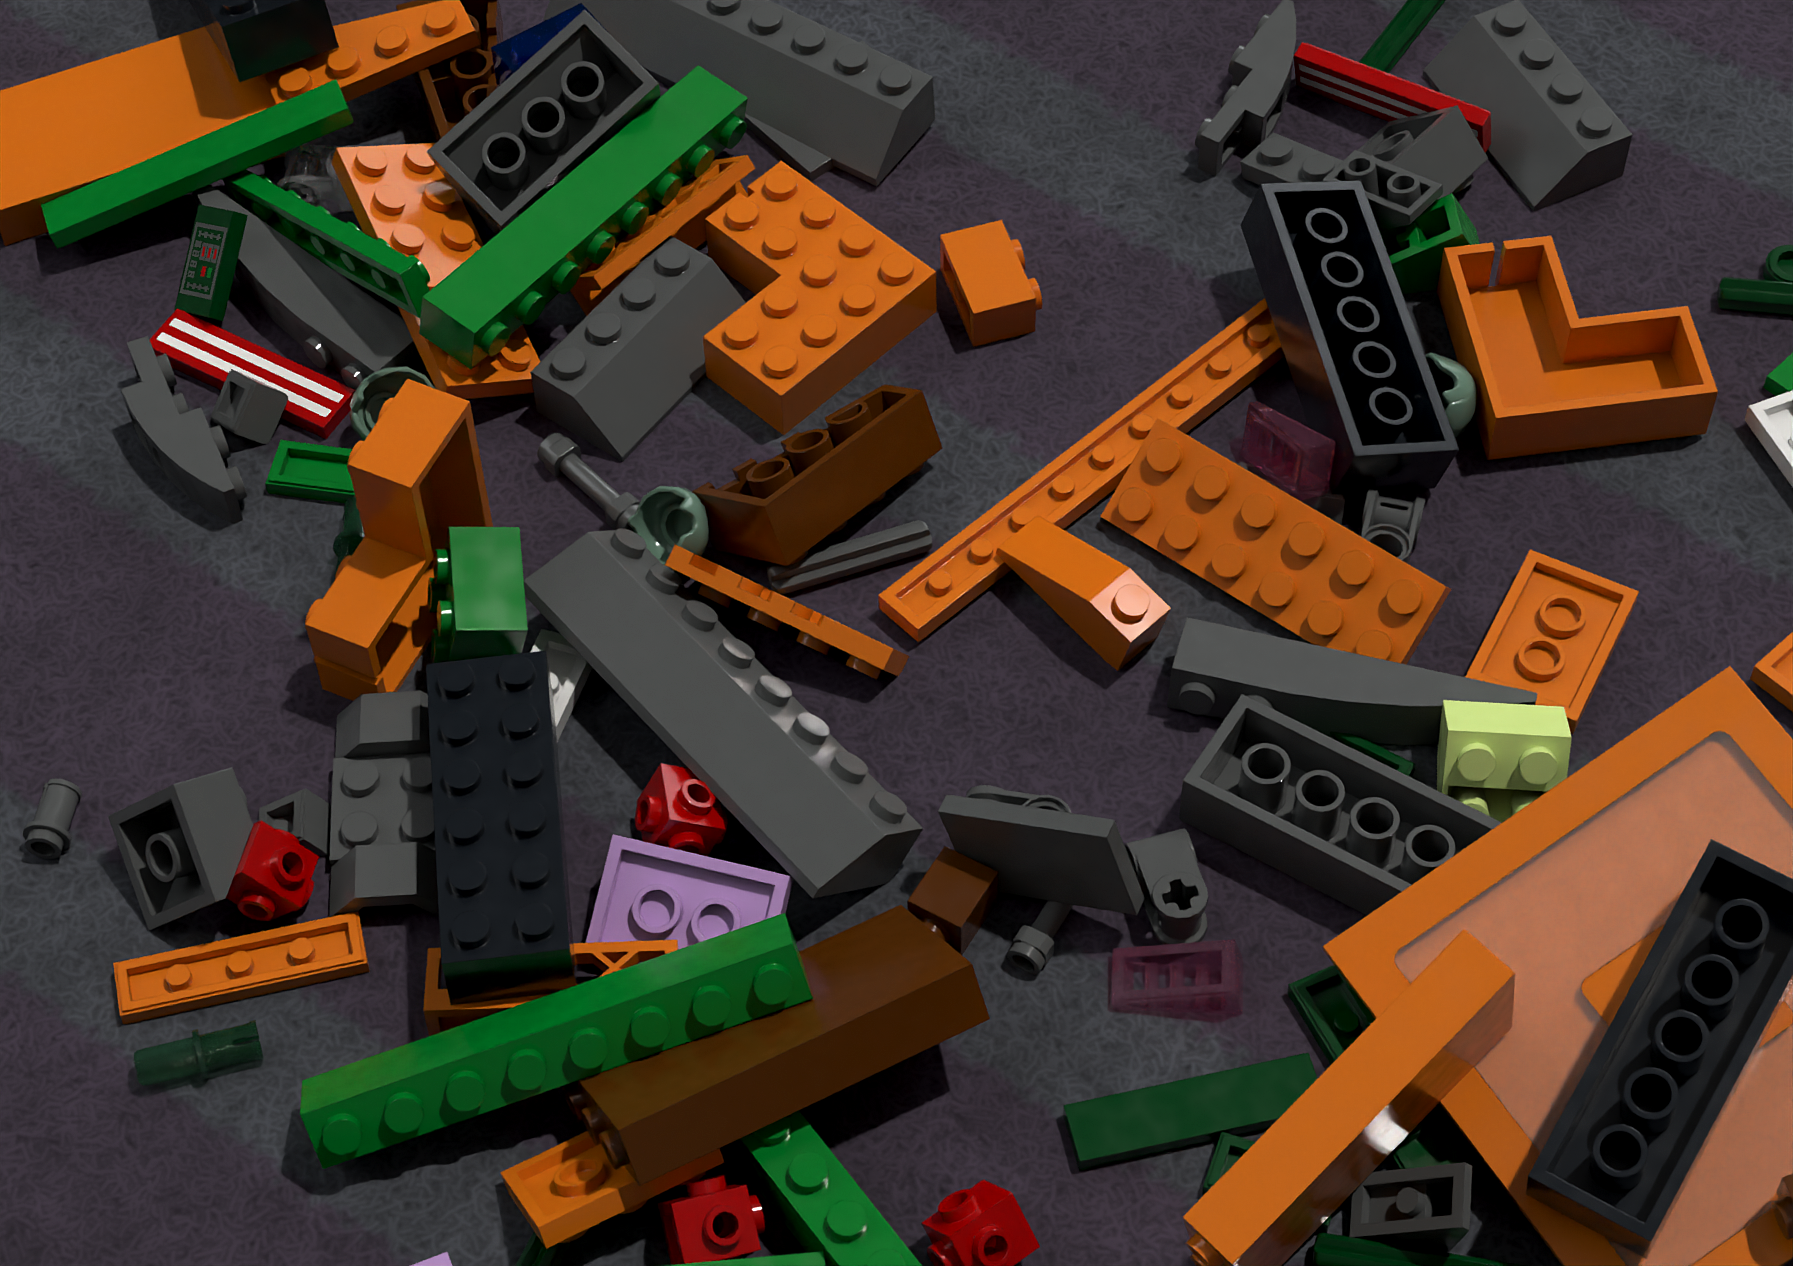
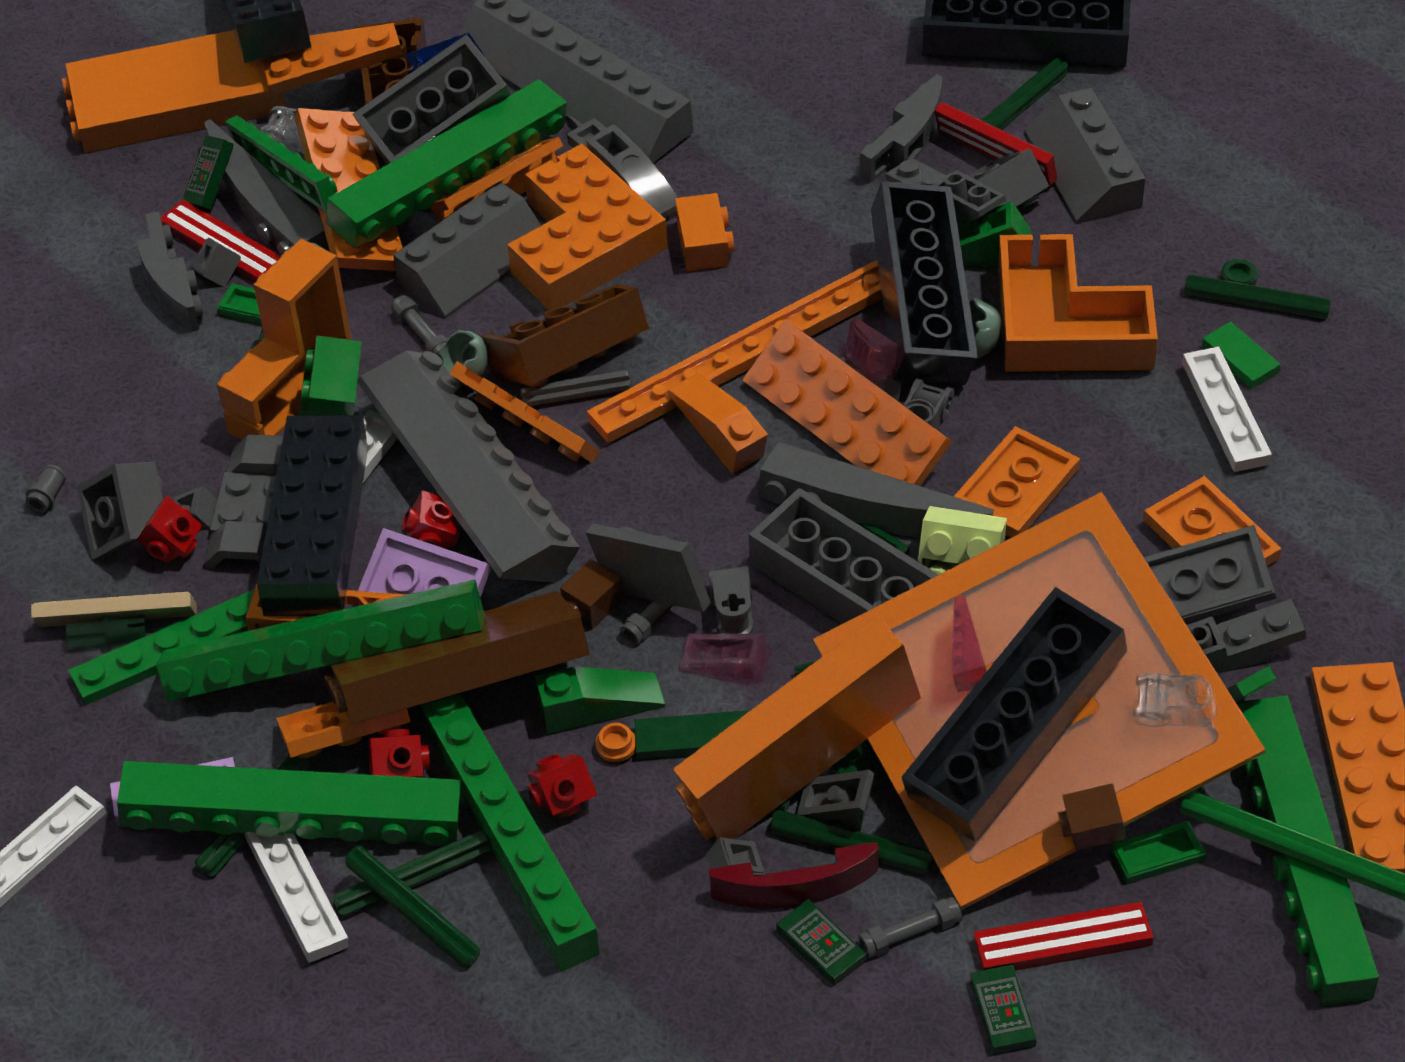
camera: 10 degrees right, 5 degrees down
(196, 164) = (210, 111): green tile -> none
(204, 1016) = (84, 610): none -> tan tile
(240, 967) = (199, 579): orange tile -> none
(272, 1085) = (139, 658): none -> green plate
(851, 180) = (627, 161): none -> dark grey slope
(994, 1074) = (594, 695): none -> green slope
(1042, 1148) = (615, 742): none -> orange plate
(1582, 958) = (967, 657): none -> clear pink slope

